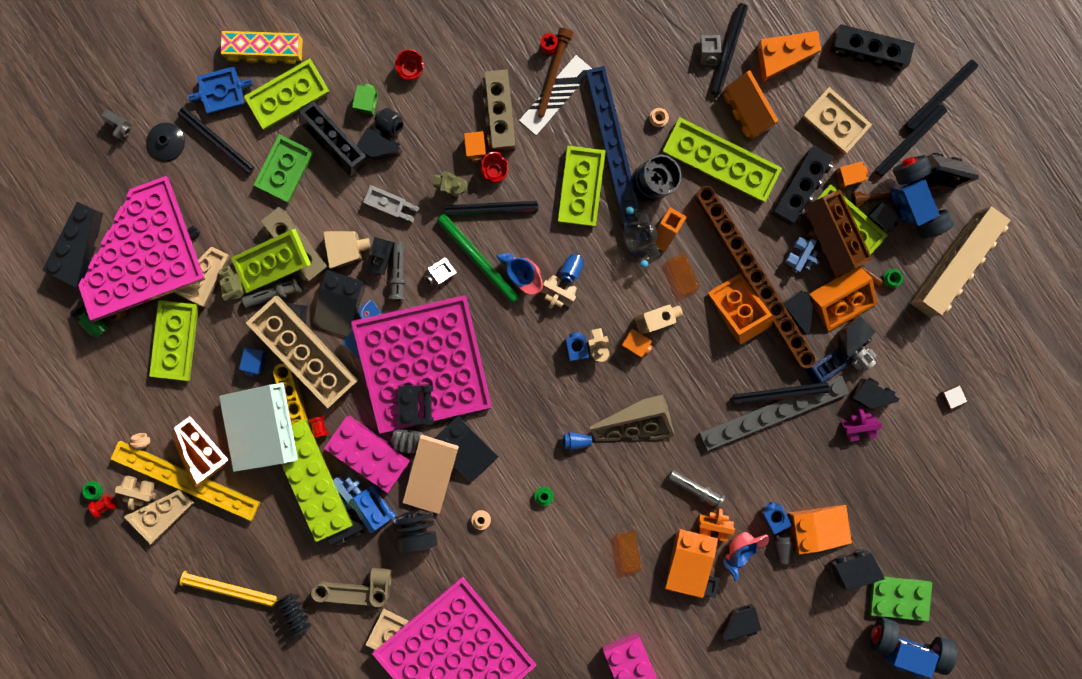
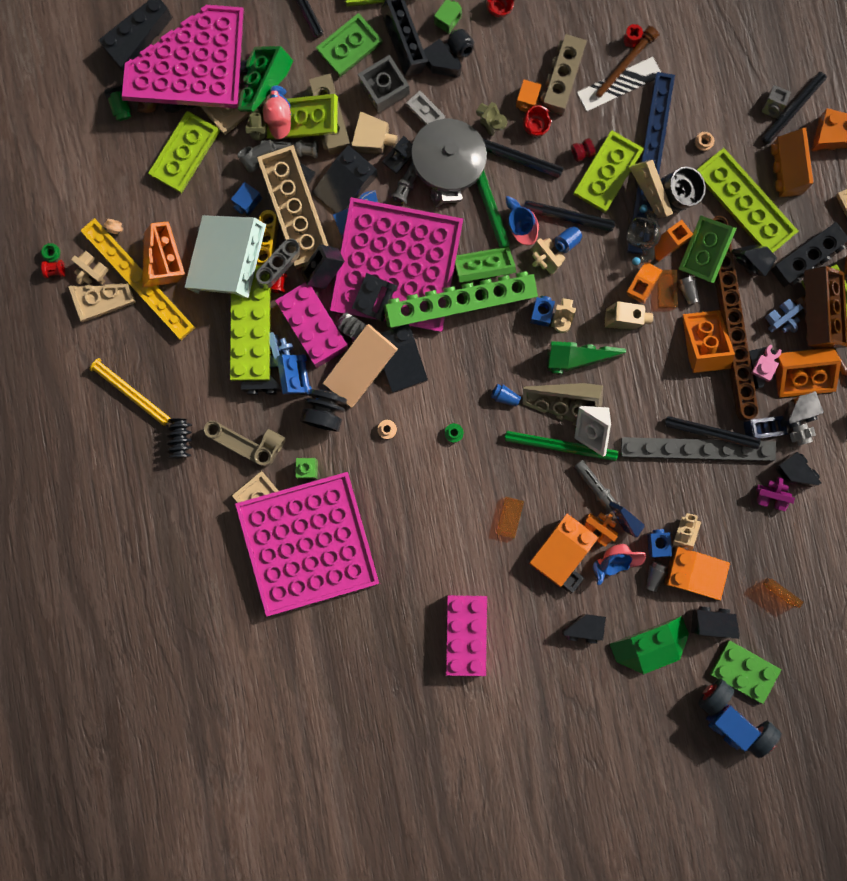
camera: 25 degrees right, 5 degrees down
(216, 231) = (266, 68): none -> green wedge
(238, 319) = (249, 155): none -> dark grey piece
(245, 267) = (277, 113): none -> coral hair
(304, 423) = (276, 272): none -> dark grey beam
(333, 194) = (383, 84): none -> dark grey brick
(354, 398) = (322, 266): none -> black brick
(423, 590) = (306, 468): none -> bright green brick
(425, 237) = (448, 155): none -> dark grey dish
(504, 327) = (484, 264): none -> bright green plate
(549, 176) = (583, 150): none -> dark red wheel
(553, 336) = (526, 290): none -> bright green brick
(562, 244) = (570, 216): none -> black axle
(621, 380) = (567, 356): none -> green wedge
(629, 187) = (651, 185): none -> tan wing
(637, 343) = (598, 331): orange brick -> none
(648, 464) = (557, 445): none -> green axle
(659, 279) = (644, 282): none -> orange slope
(671, 438) = (593, 428): none -> white slope
(703, 267) = (689, 289): none -> flat silver cone
(705, 224) = (707, 248): none -> bright green plate
(737, 509) = (628, 521): none -> dark blue slope
(754, 212) = (755, 258): none -> black slope
(796, 496) = (687, 531): none -> tan hips
(805, 313) = (765, 365): none -> bright pink plate
(808, 612) = (652, 647): none -> green wedge
(918, 516) = (783, 593): none -> clear orange tile

